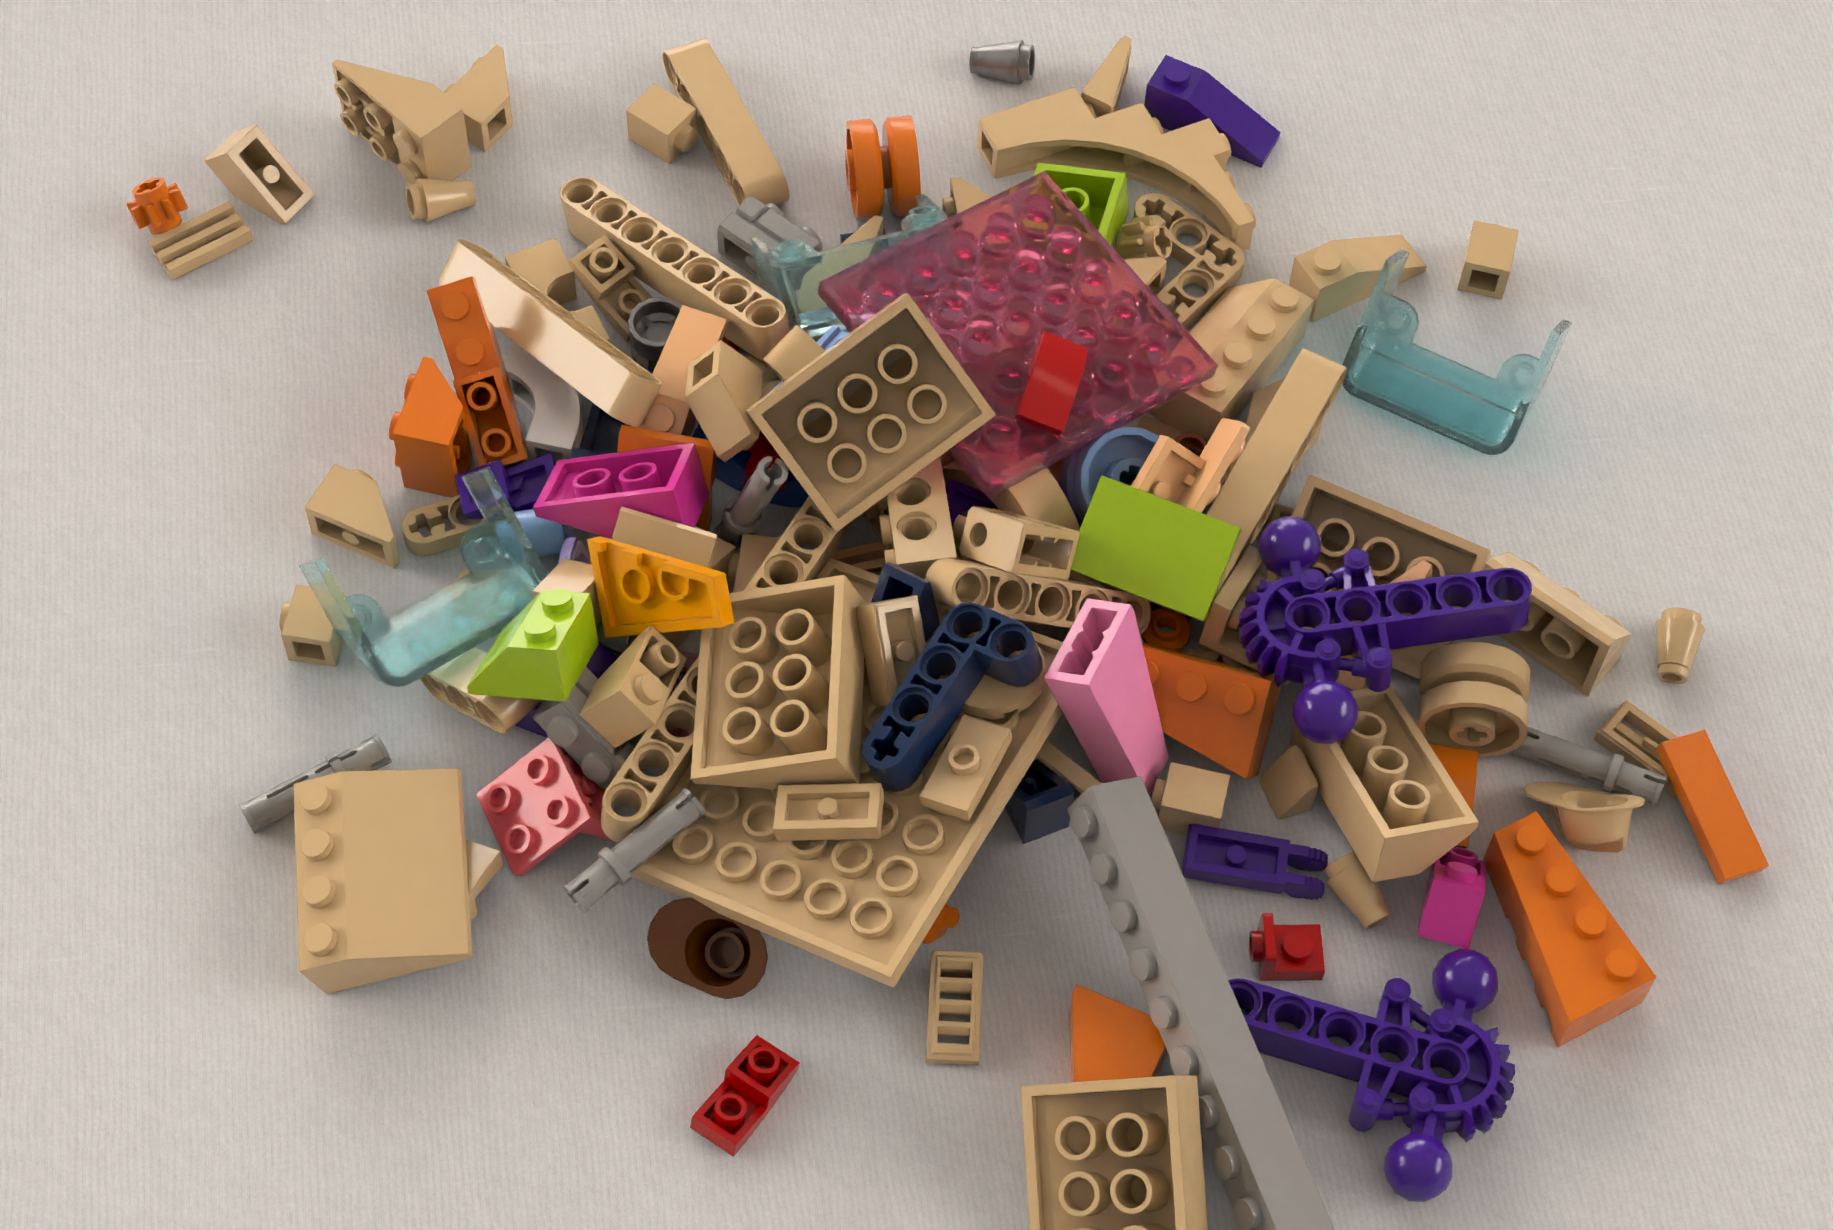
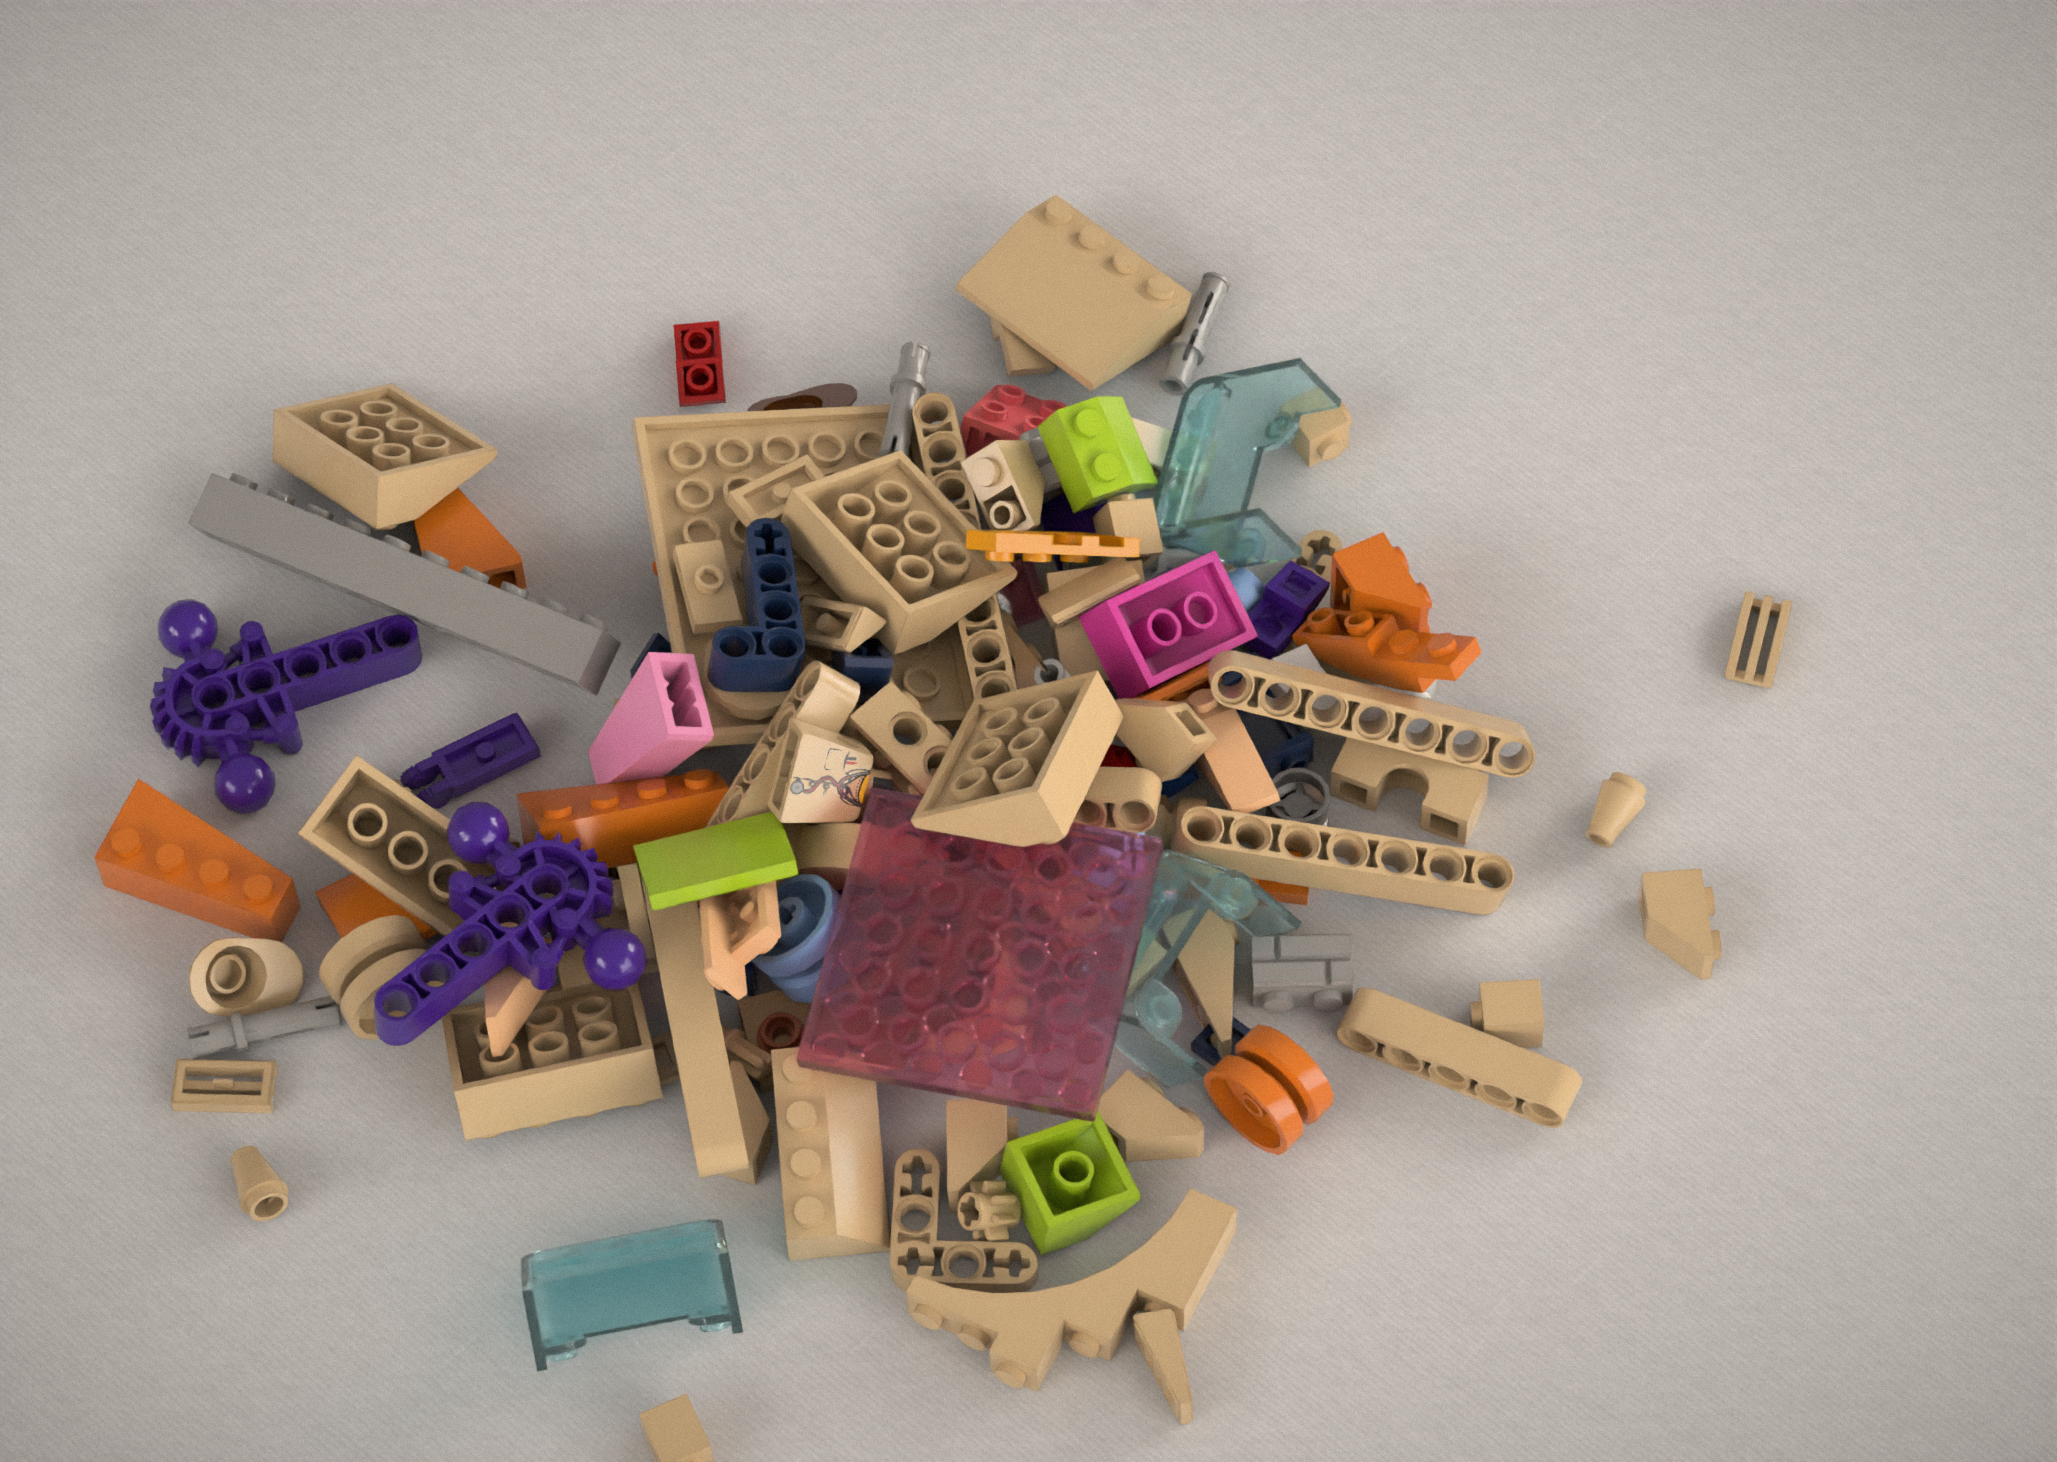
camera: 145 degrees right, 0 degrees up
(157, 205) = (1815, 624): orange gear -> none
(259, 174) = (1775, 712): tan slope -> none
(353, 515) = (1374, 509): tan slope -> none
(404, 121) = (1705, 821): tan slope -> none
(609, 282) = (1394, 818): tan slope -> none
(955, 974) = (615, 543): tan slope -> none
(1004, 61) = (1284, 1319): flat silver cone -> none
(1052, 383) = (897, 894): red slope -> none
(1186, 94) = (1052, 1406): dark purple slope -> none
(1190, 797) = (551, 762): tan brick -> none
(1287, 951) = (397, 721): red bracket -> none
(1348, 270) = (787, 1339): tan slope -> none
(1453, 898) = (284, 817): dark pink slope -> none
(1564, 630) = (373, 1107): tan slope -> none
(1711, 807) = (141, 1057): orange tile -> none

